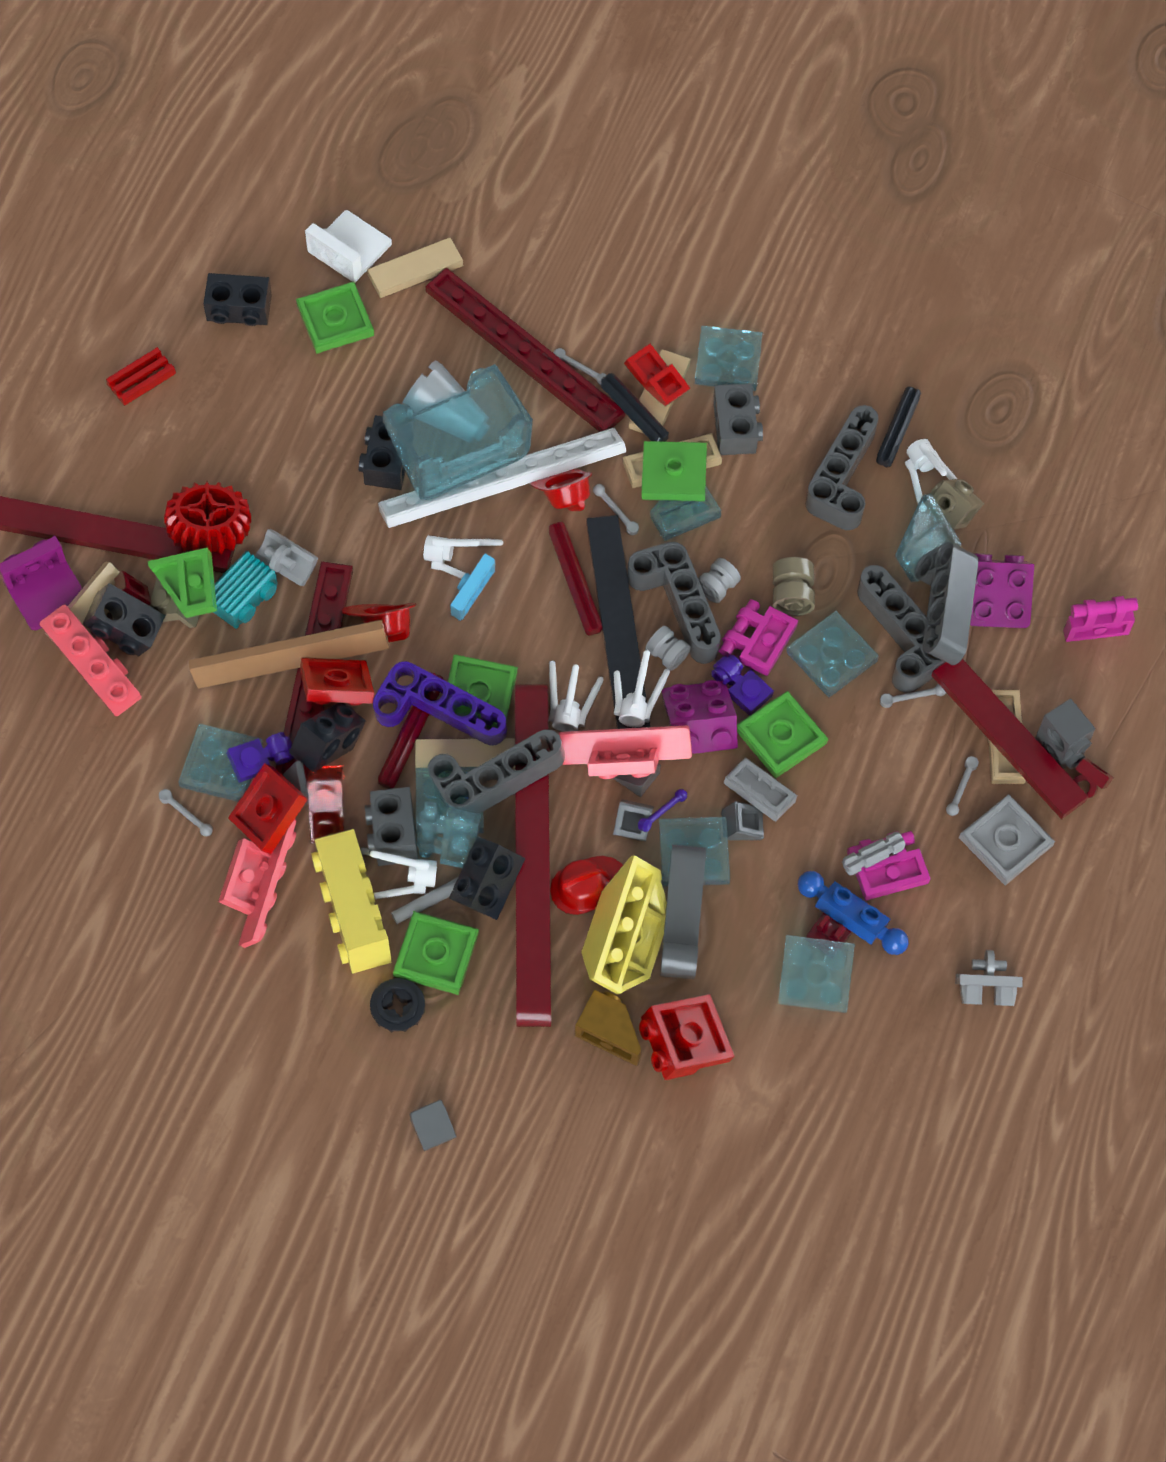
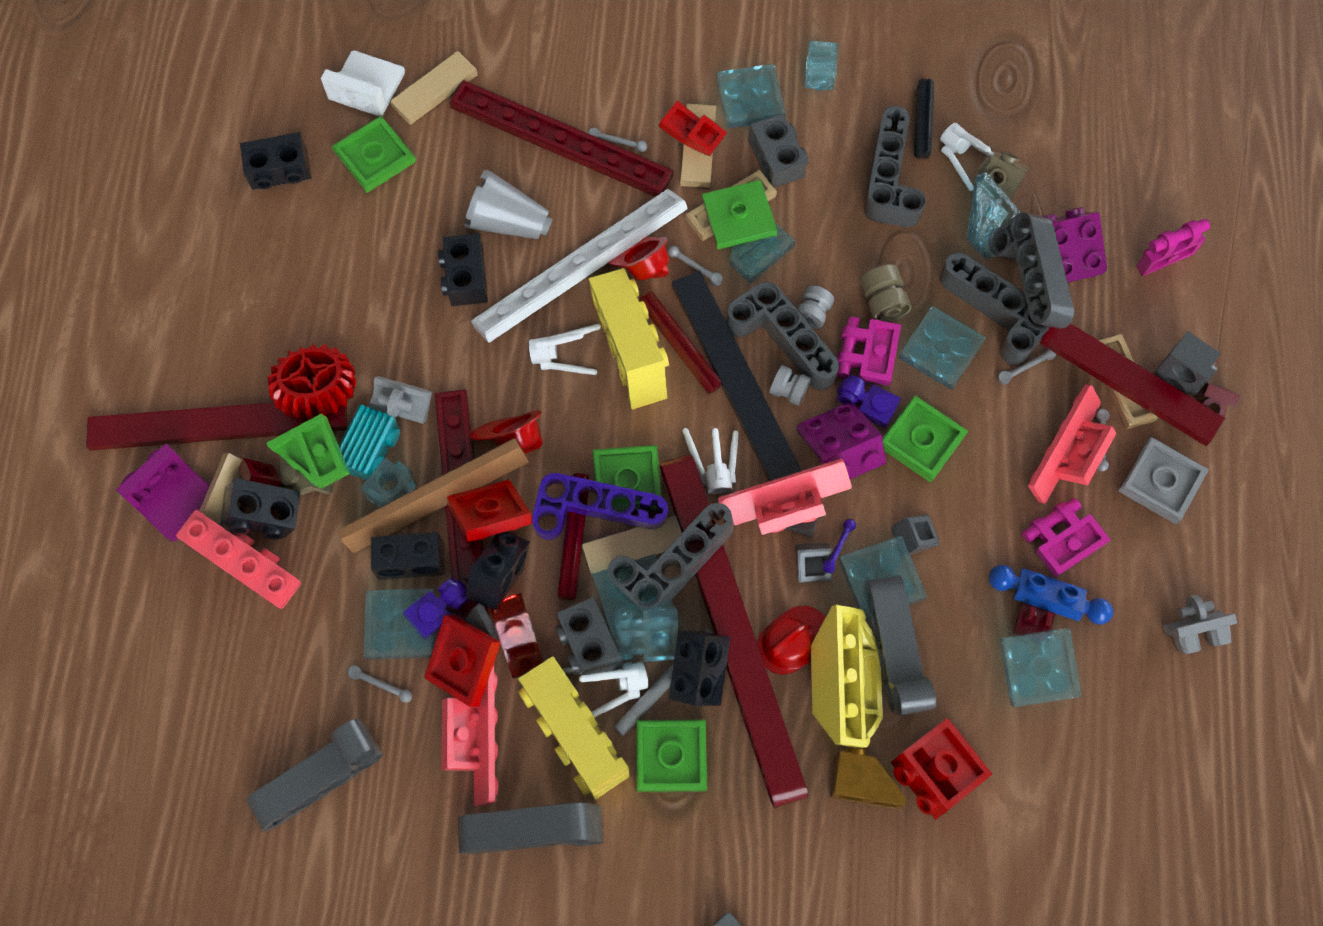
camera: 15 degrees left, 5 degrees up
(103, 874) = (316, 776): none -> dark grey beam
(138, 372) = (201, 256): red tile -> none
(247, 703) = (407, 556): none -> black brick
(248, 622) = (385, 472): none -> clear light blue brick
(285, 973) = (531, 828): none -> dark grey beam
(407, 993) = (654, 804): black gear -> none
(461, 435) = (532, 233): clear light blue windscreen -> none
(471, 587) = (586, 378): medium azure plate -> none
(526, 560) = (630, 337): none -> light yellow wedge
(633, 709) = (781, 454): white plant -> none
(634, 408) = (682, 165): black axle -> none
(760, 789) = (922, 498): light grey plate -> none
(810, 346) = (821, 65): none -> clear light blue brick
(873, 853) = (1053, 531): light grey axle -> none
(927, 783) = (1075, 449): none -> coral bracket

